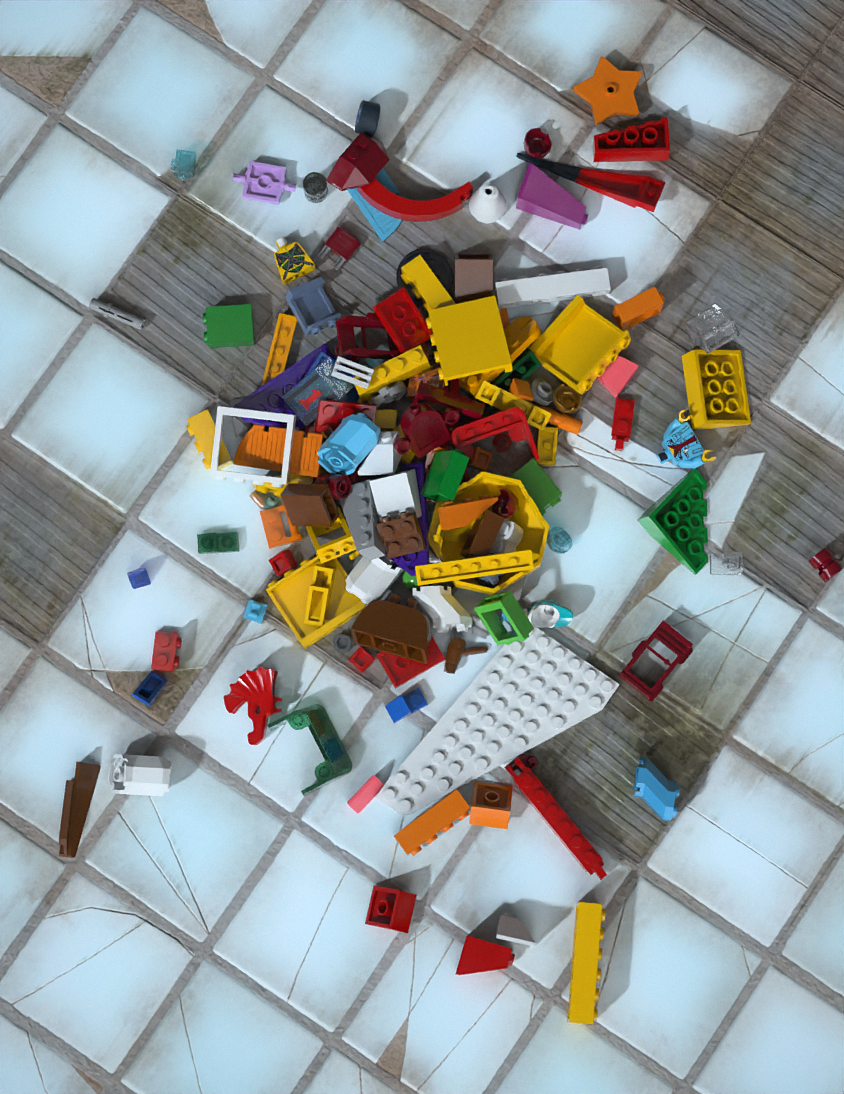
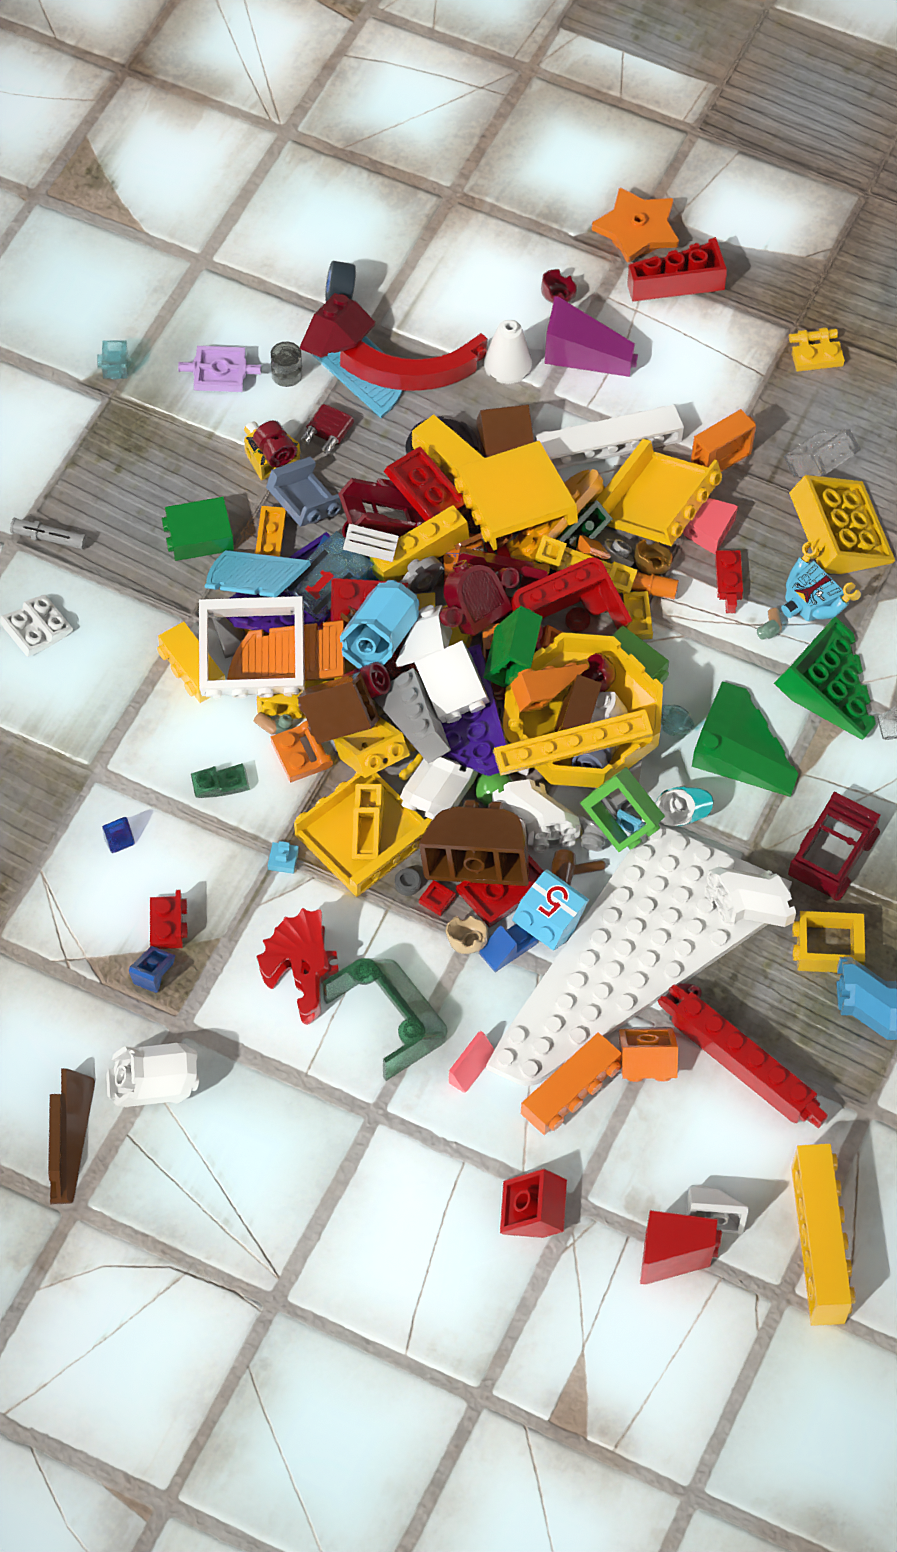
camera: 10 degrees left, 20 degrees down
(99, 392) = (36, 625): none -> white slope
(263, 379) = (254, 573): none -> medium azure piece
(283, 562) = (309, 793): red slope -> none
(295, 268) = (274, 443): none -> dark red wheel
(377, 695) = (467, 935): none -> tan hair
(401, 534) = (467, 720): reddish brown plate -> none
(439, 688) = (550, 910): none -> medium azure slope
(583, 701) = (750, 896): none -> white brick
(604, 564) = (740, 745): none -> green slope
(625, 188) = (677, 322): red plate -> none
(647, 469) = (771, 627): none -> sand green arm
(656, 742) = (827, 962): none -> yellow window
(729, 231) = (816, 356): none -> yellow plate

